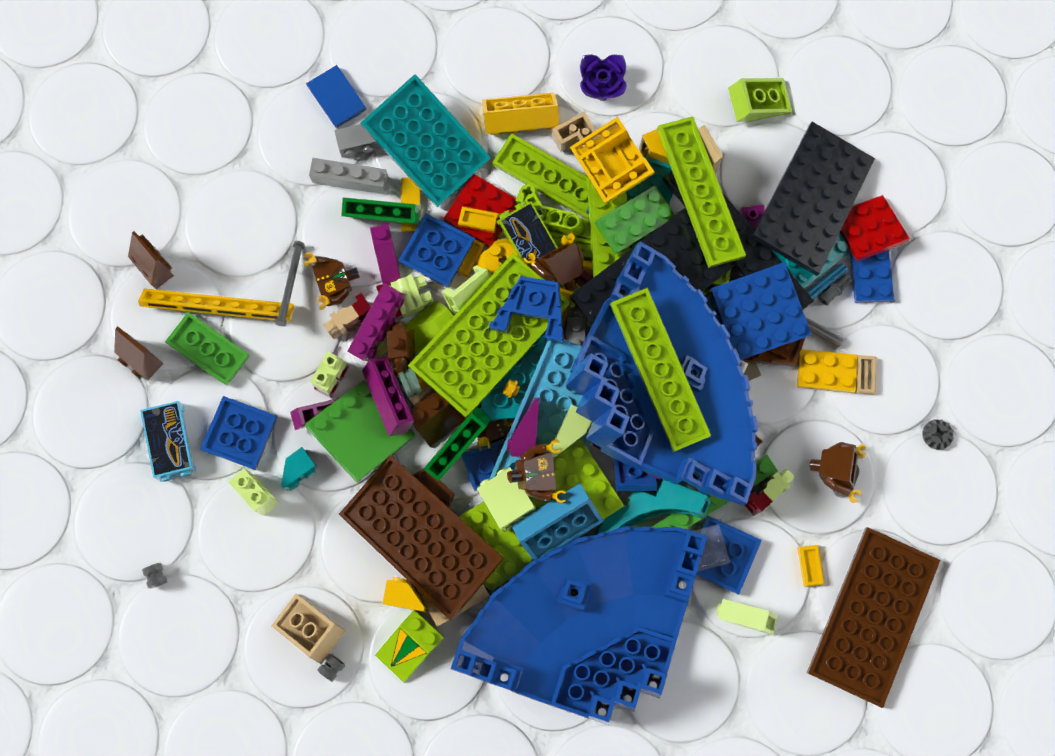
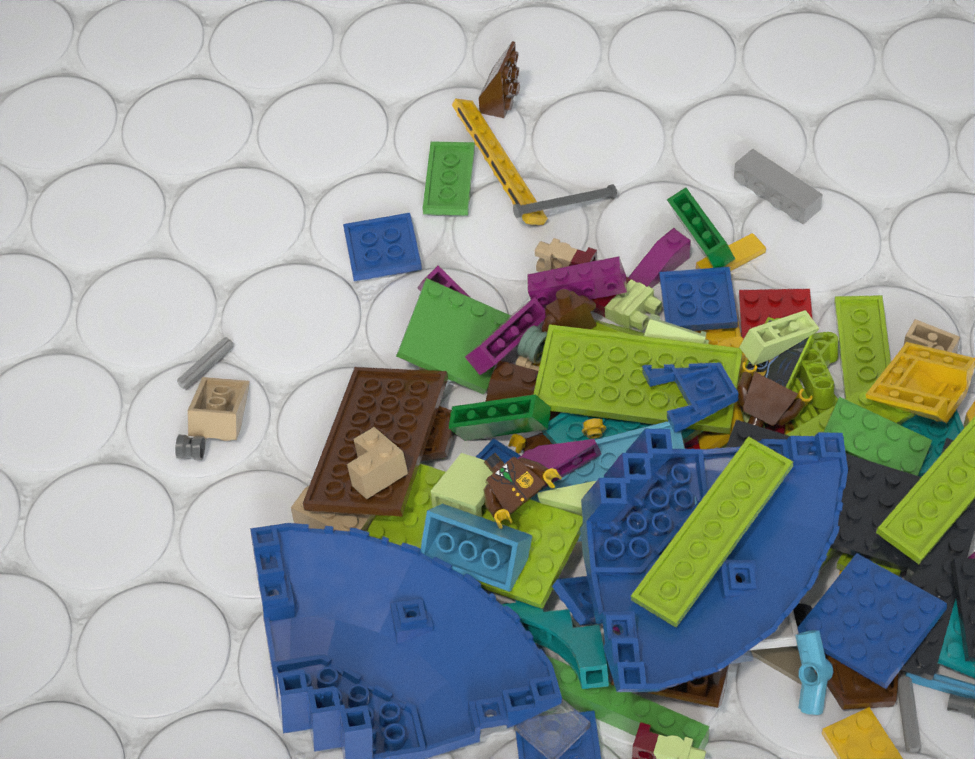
camera: 65 degrees right, 25 degrees down
(135, 355) = (401, 124): reddish brown slope -> none
(154, 575) = (193, 257): dark grey wheel -> none
(167, 441) = (333, 195): panel -> none
(253, 492) = (326, 279): yellowish green window -> none
(259, 617) = (205, 363): none -> light grey axle
(296, 468) = (378, 309): teal slope -> none
(329, 371) = (494, 270): yellowish green hips -> none
(331, 278) = (596, 230): reddish brown torso -> none
(336, 96) = (793, 138): blue tile -> none
(348, 176) = (716, 189): light grey brick -> none
(403, 595) = (301, 449): yellow slope -> none
(409, 645) = (257, 502): lime slope -> none
(425, 140) = (806, 224): teal plate -> none
(457, 549) = (377, 463): none -> tan brick
(478, 219) = (757, 309): yellow tile -> none
(520, 113) = (910, 291): yellow slope -> none
(522, 225) = (775, 337): none -> yellowish green slope
(769, 366) = (813, 686): none -> medium azure piece

